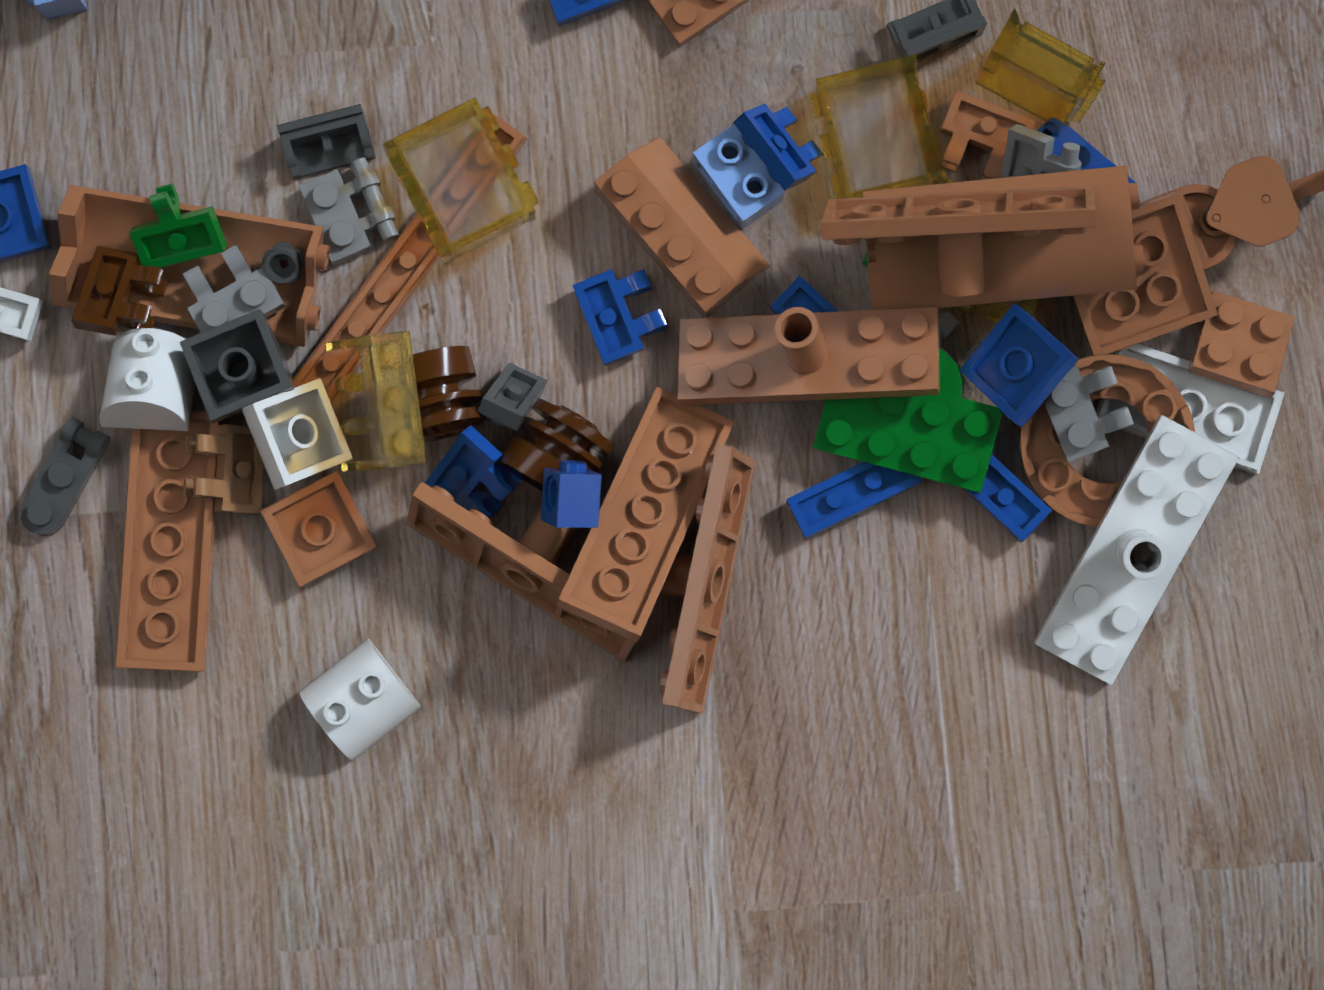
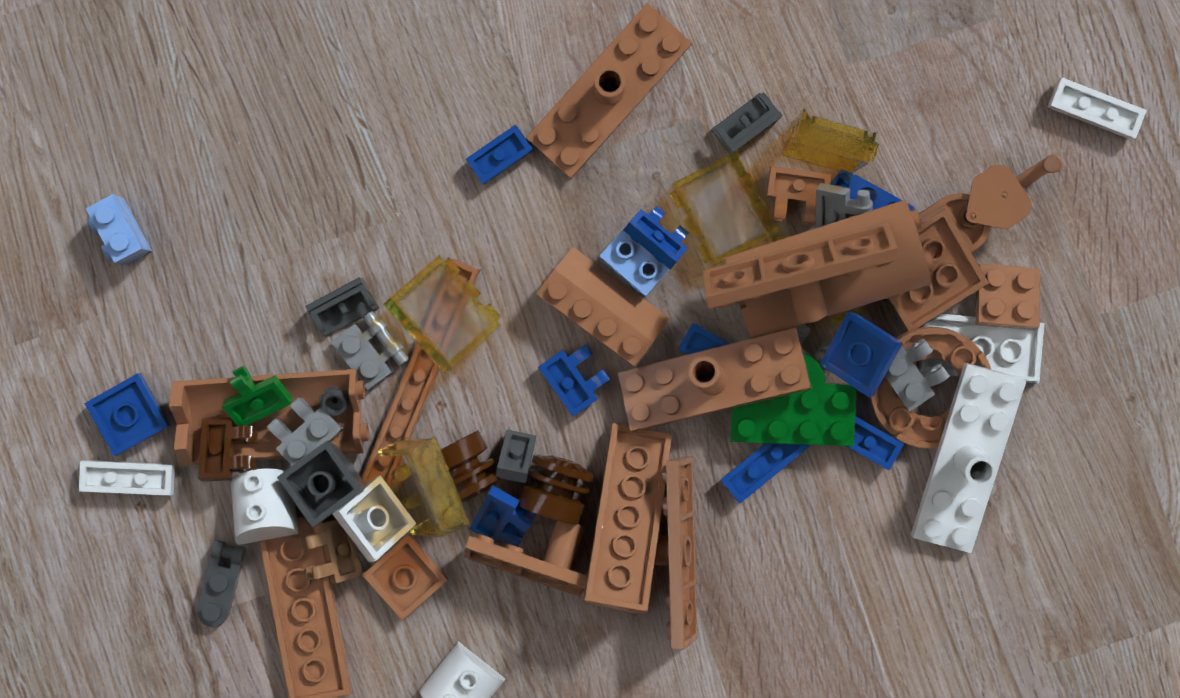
camera: 10 degrees left, 5 degrees up
(571, 496) = (575, 523): blue brick -> none

